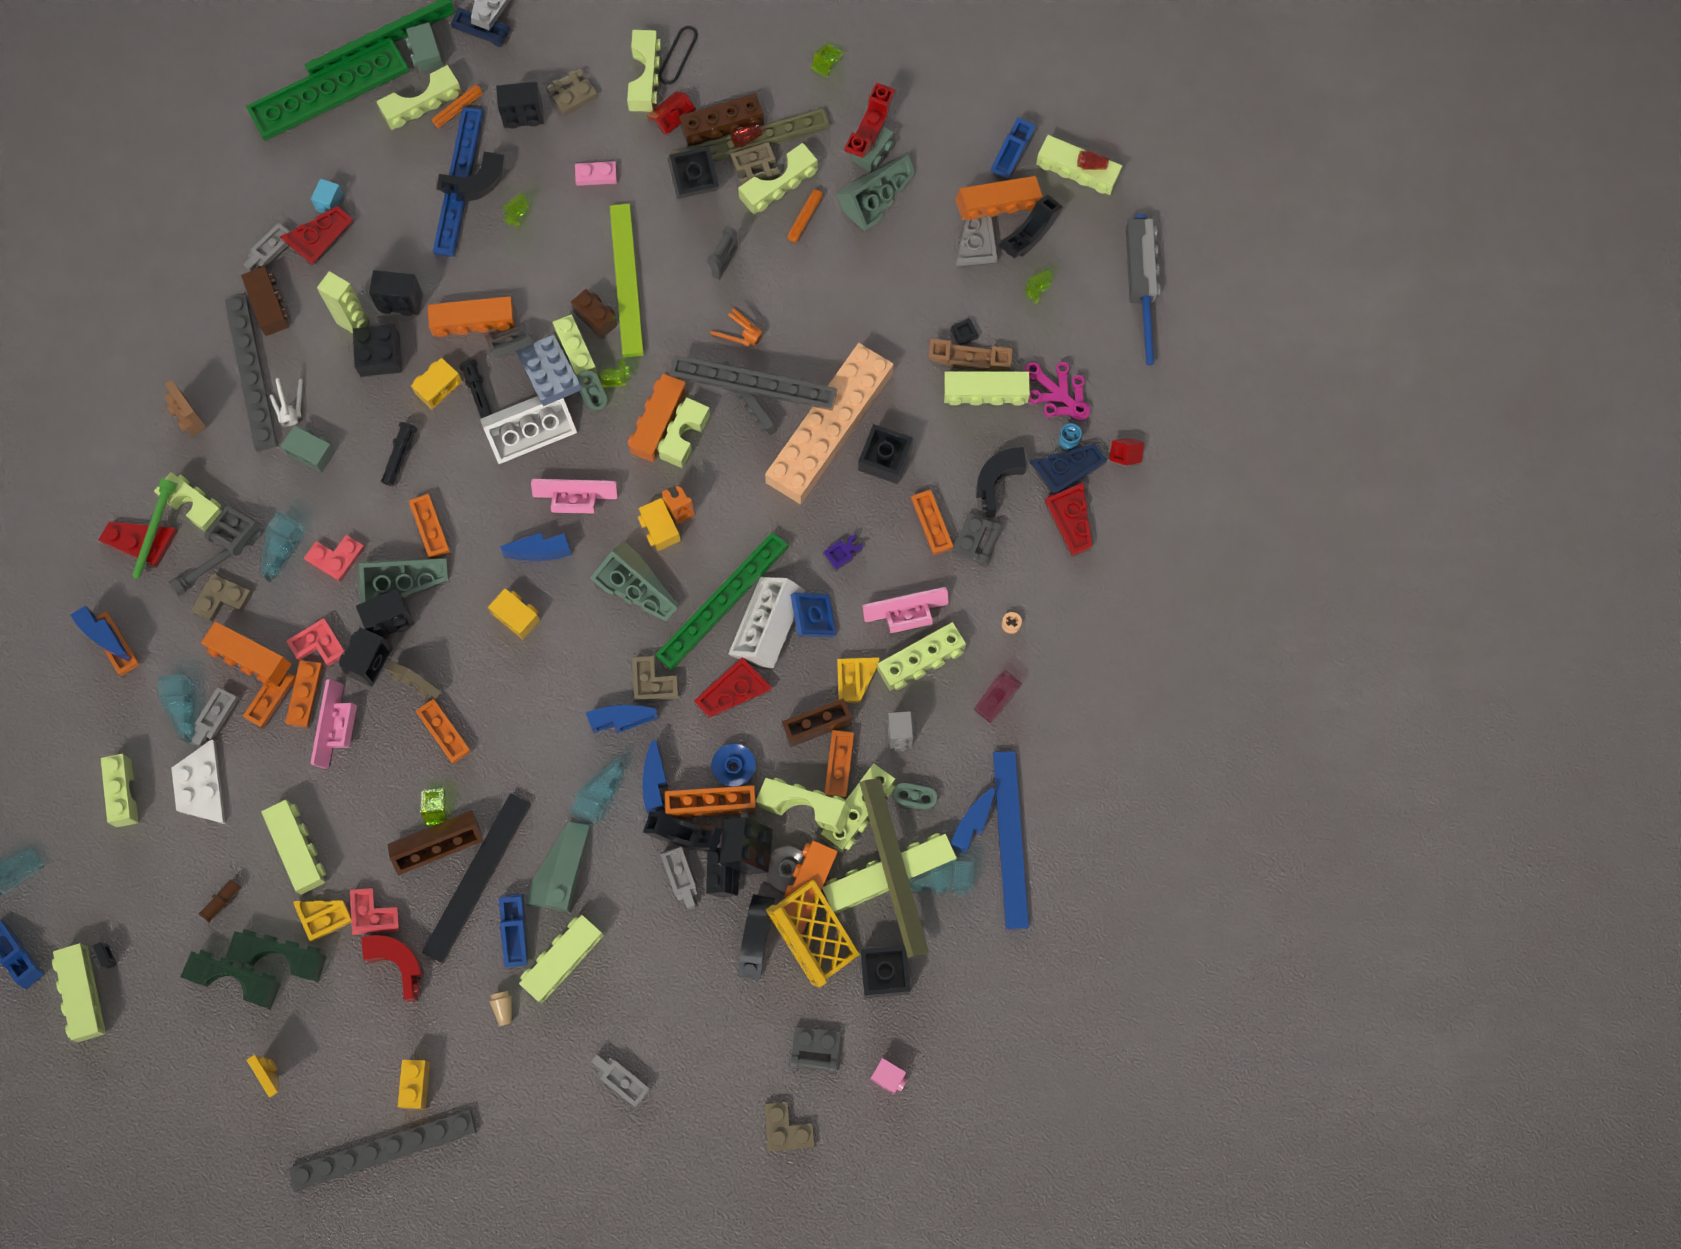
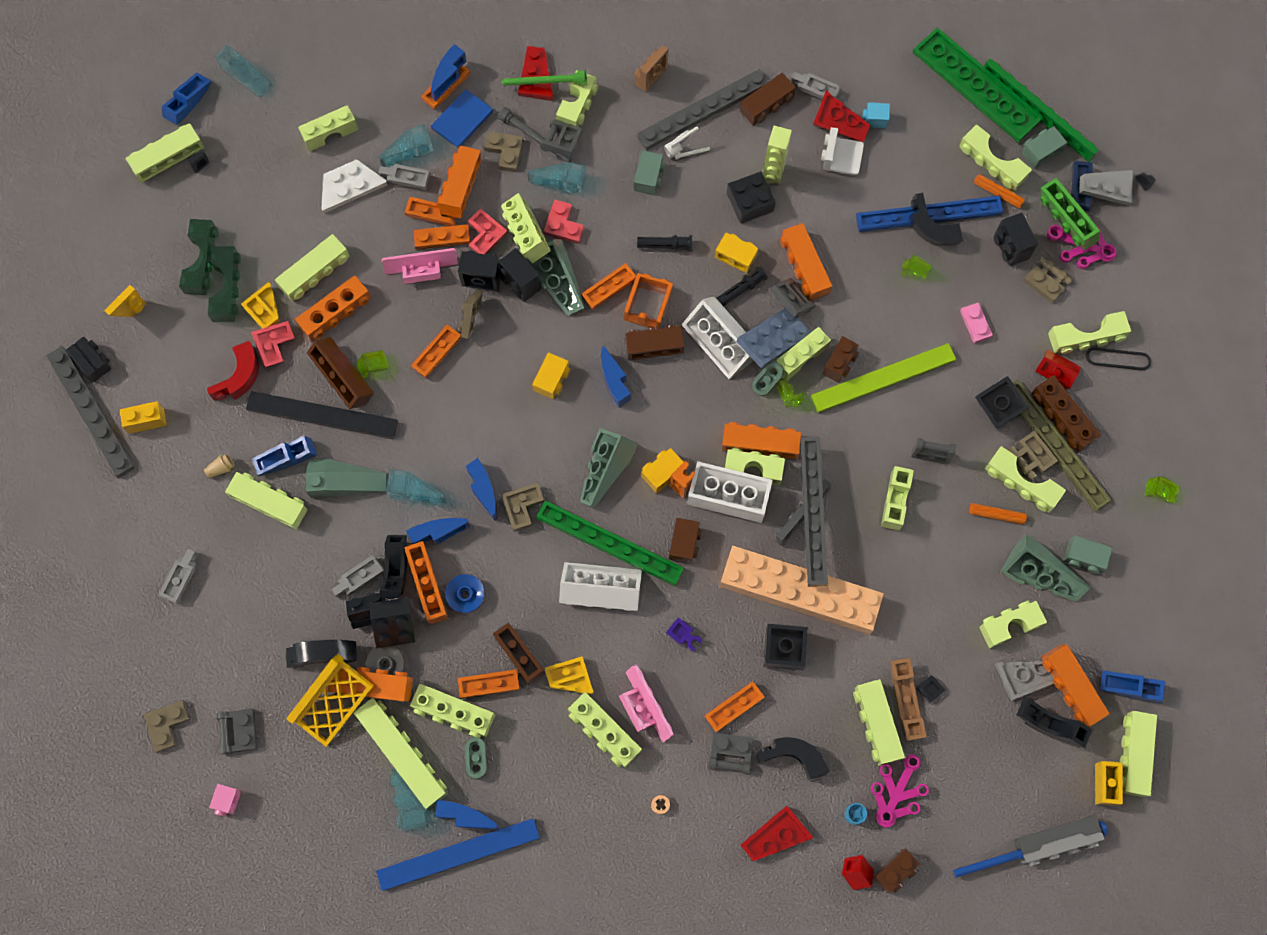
camera: 75 degrees right, 0 degrees up
(163, 636) = (462, 118): none -> blue tile
(219, 901) = (259, 228): reddish brown pin -> none
(317, 1138) = (88, 359): none -> black brick
(330, 593) = (525, 228): none -> yellowish green brick
(335, 805) = (336, 298): none -> orange brick
(359, 245) = (841, 154): none -> white bracket
(395, 292) = (804, 194): black brick -> none
(461, 488) = (648, 301): none -> window
(510, 45) = (1070, 214): none -> bright green brick
(511, 495) = (654, 342): none -> reddish brown brick
(544, 45) = (1098, 249): none -> dark pink plant
(574, 495) = (668, 392): bright pink bracket -> none
(706, 461) = (729, 492): none -> white slope
(732, 689) = (532, 573): red wing -> none
(743, 522) = (684, 540): none -> reddish brown brick
(744, 135) = (1056, 438): clear red cone -> none
(748, 297) = (896, 497): none -> yellowish green arch
(751, 333) = (865, 498): orange plant -> none
(779, 797) = (436, 683): yellowish green arch -> none
(813, 615) = (616, 624): blue plate -> none
(869, 129) = (1105, 546): red slope -> none
(885, 971) = (312, 772): black brick -> none
(894, 867) = (401, 754): olive tile -> none
(900, 731) = (527, 728): light grey brick -> none
(923, 252) = (1027, 616): none -> yellowish green arch
(997, 696) = (586, 809): clear pink slope -> none
(1038, 283) = (1001, 745): clear neon green bracket -> none
(1068, 468) = (823, 818): dark blue wing -> none
(1091, 161) = (1142, 763): clear red cone -> none
(1100, 198) = (1108, 783): none -> yellow brick
(1134, 414) = (896, 870): none -> reddish brown brick

